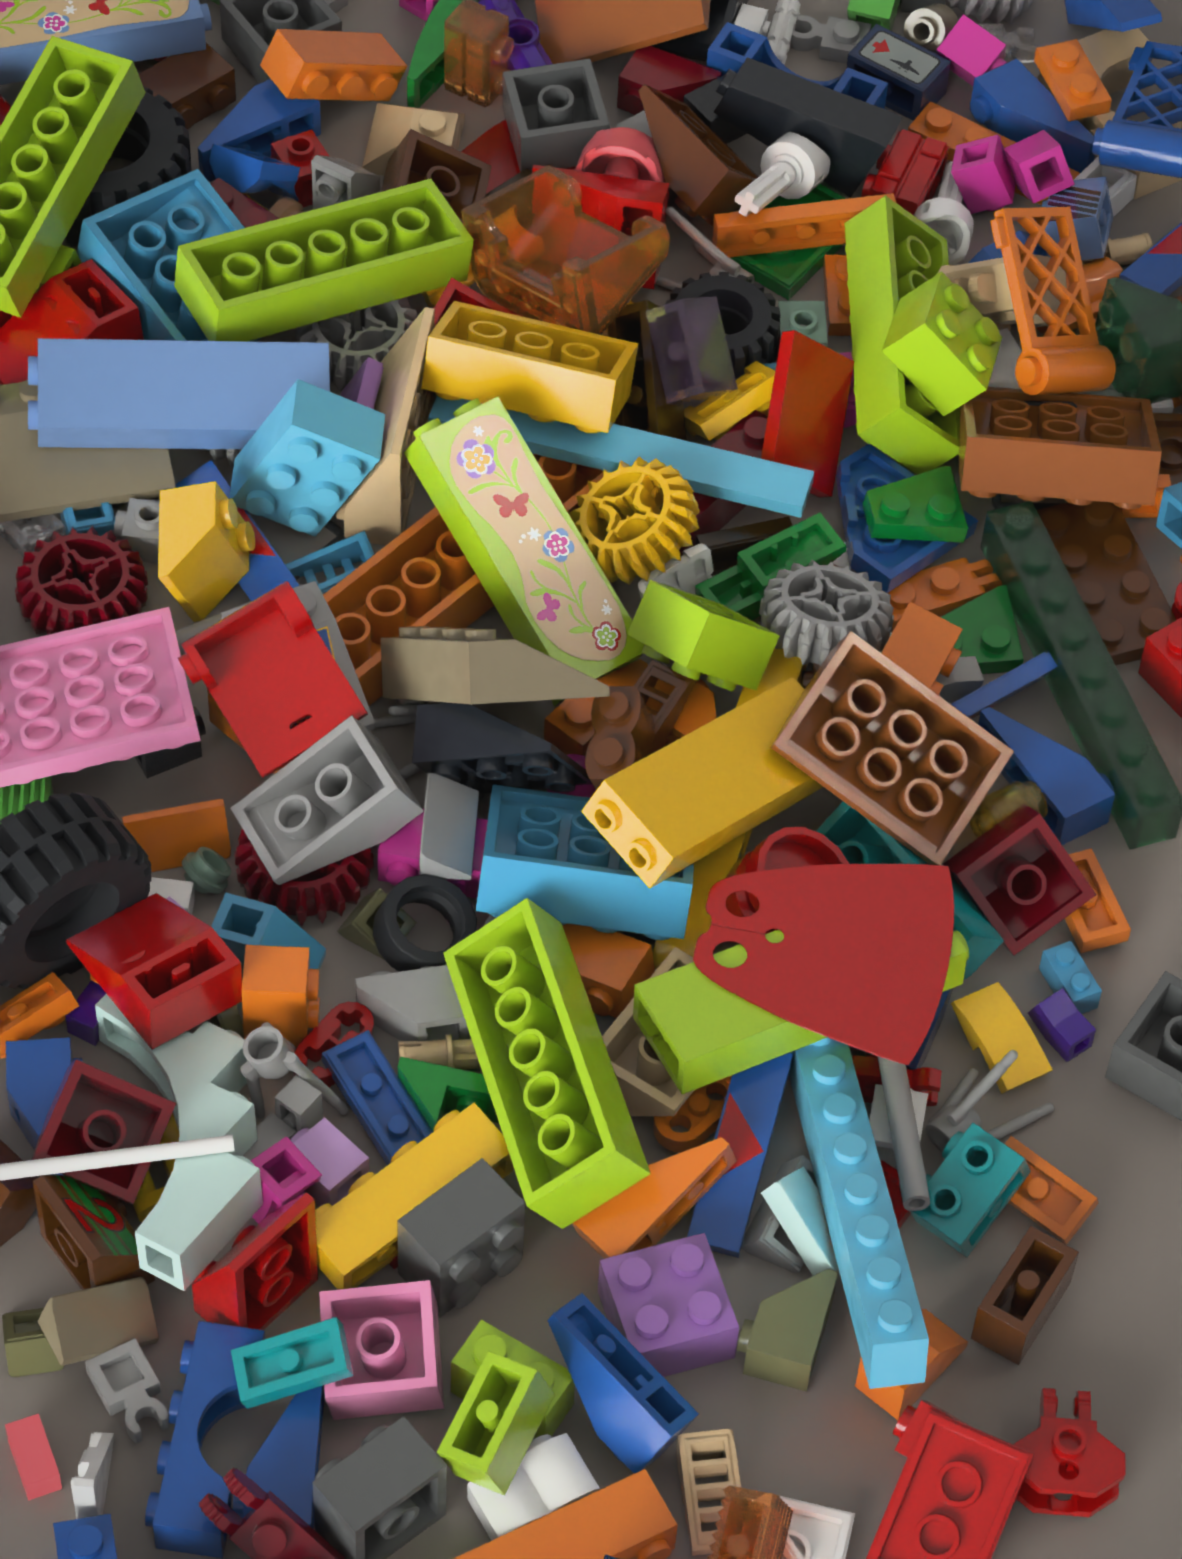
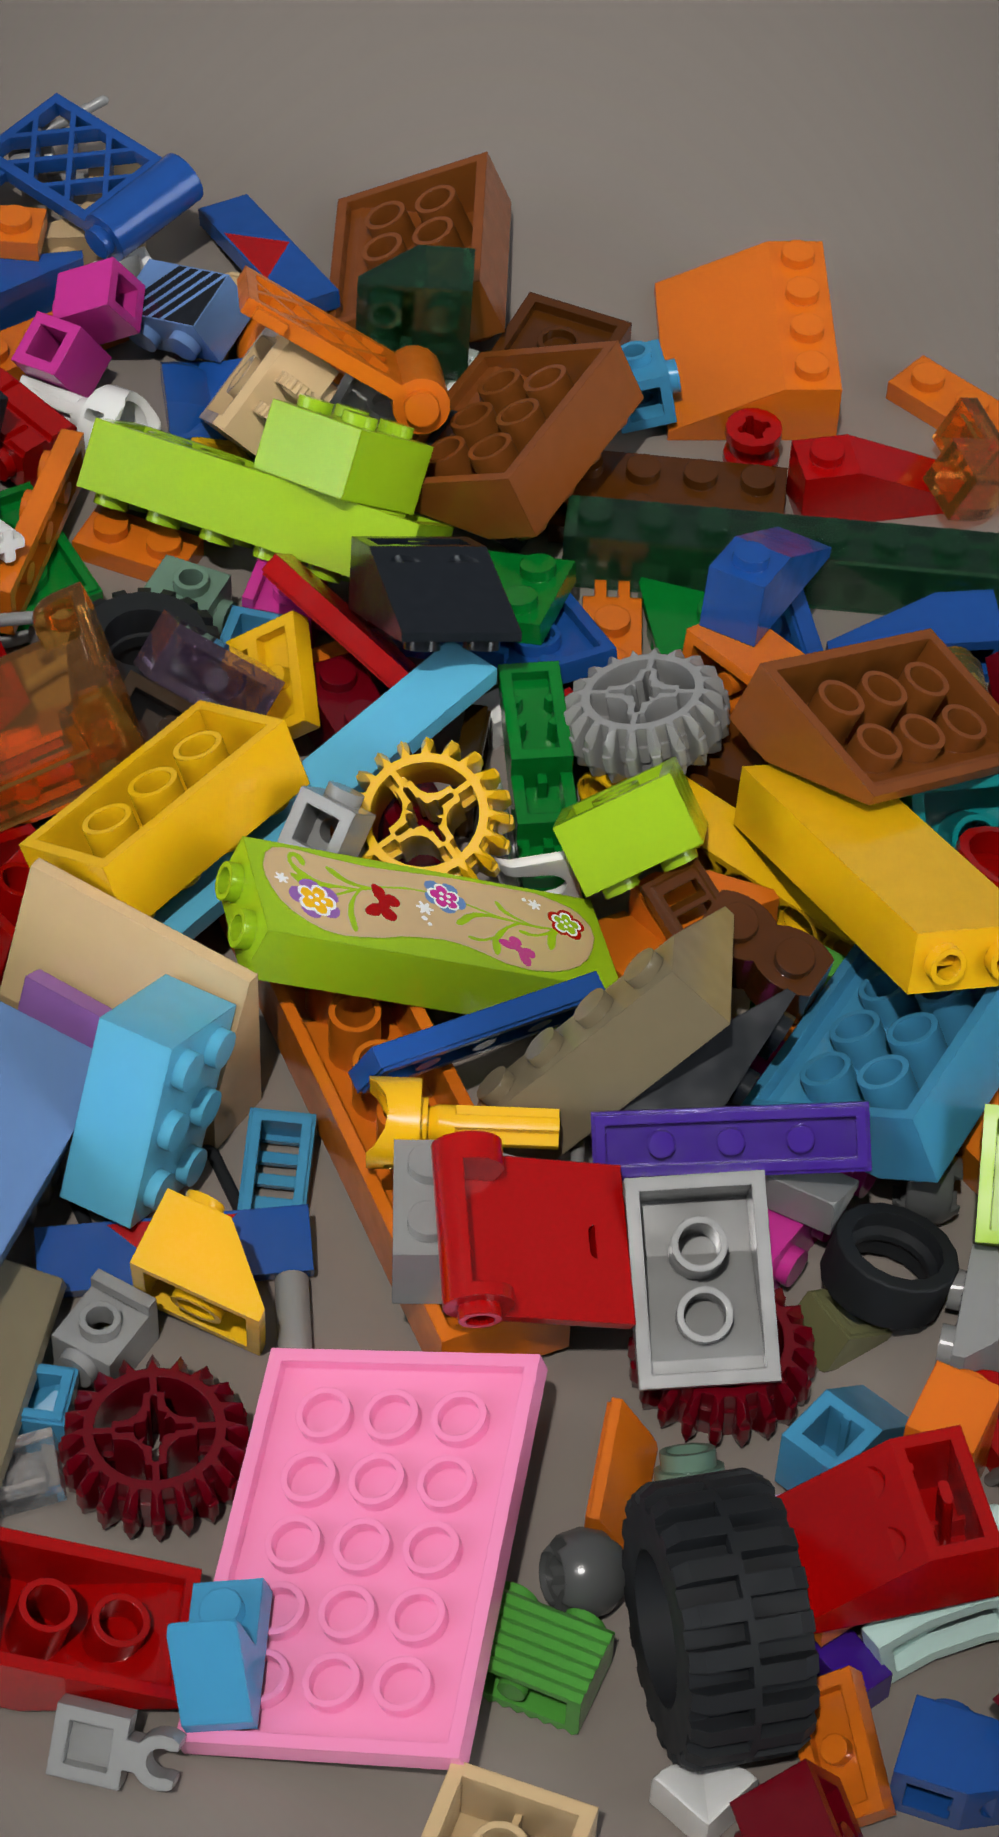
camera: 65 degrees left, 5 degrees down
(353, 595) = (413, 1119): none -> yellow piece
(429, 772) = (735, 1138): none -> dark purple tile
(438, 594) = (474, 1032): none -> blue tile
(572, 458) = (315, 812): none -> light grey brick
(835, 438) = (431, 592): none -> black slope
(987, 624) = (758, 581): none -> blue slope

